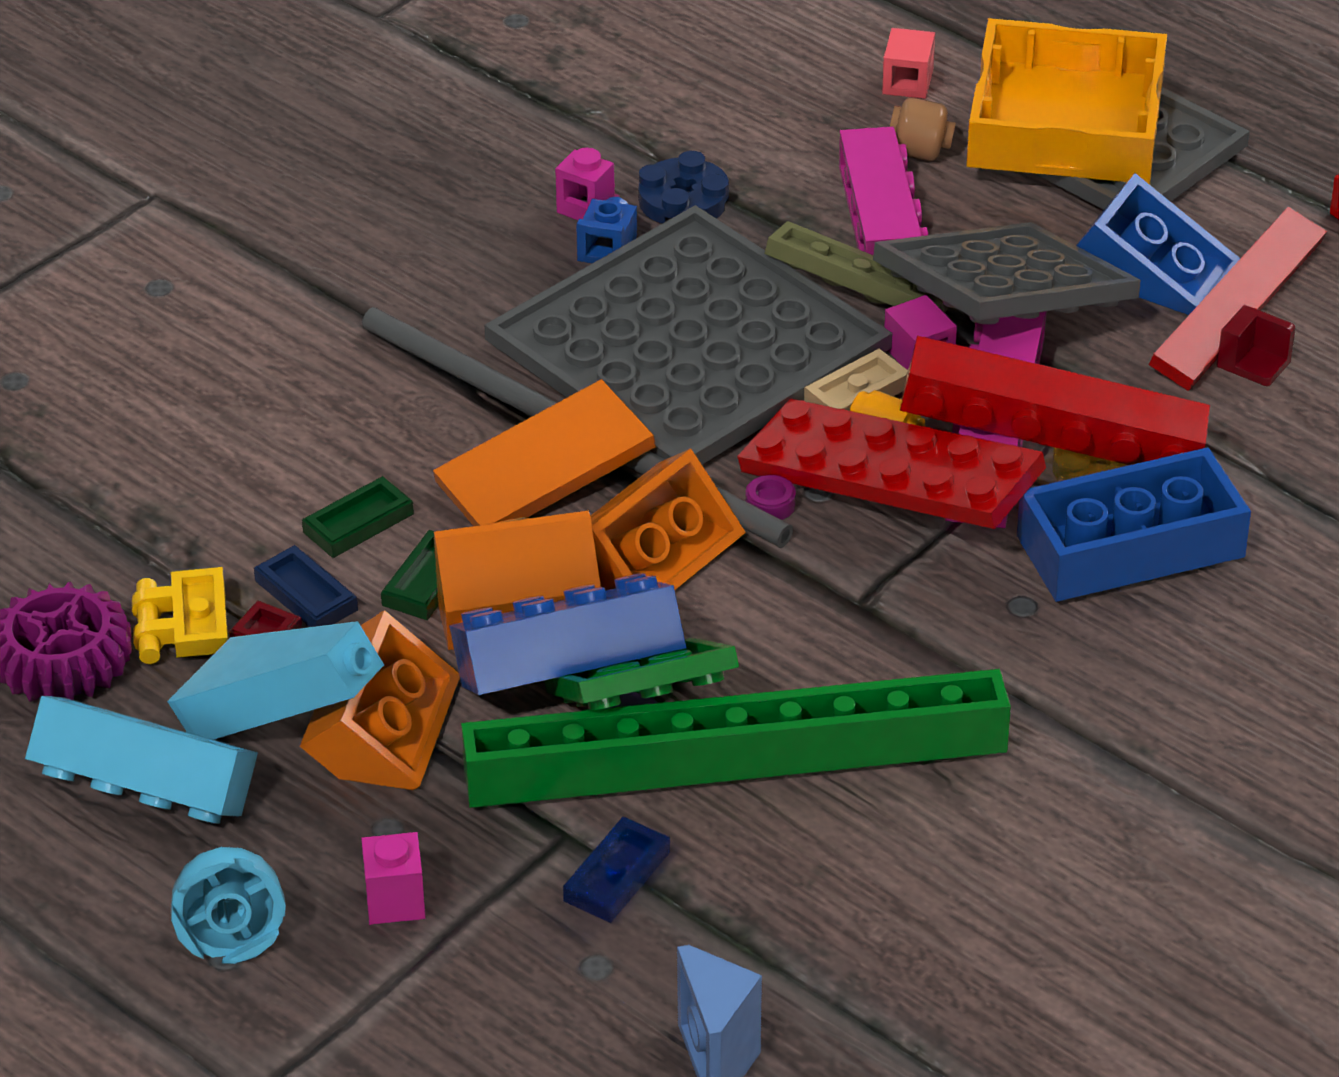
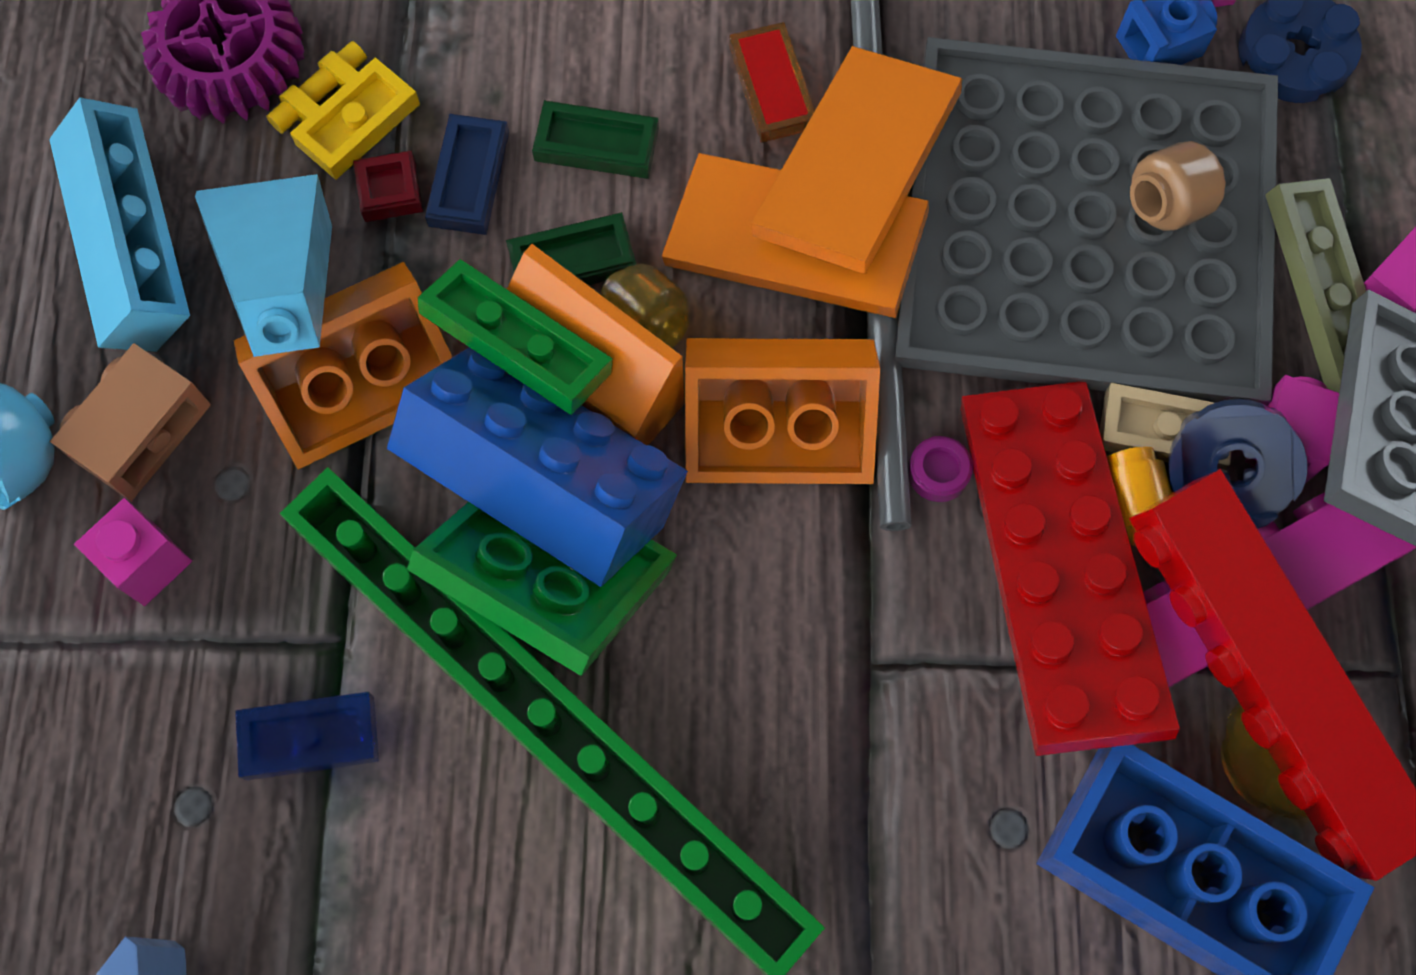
camera: 50 degrees right, 30 degrees up
(292, 833) = (131, 421): none -> nougat brick
(421, 415) = (771, 81): none -> tile
(480, 583) = (515, 336): none -> green plate
(535, 391) = (857, 159): none -> orange tile
(720, 275) = (1177, 186): none -> medium nougat head
(888, 346) = (1261, 435): none -> dark blue plate

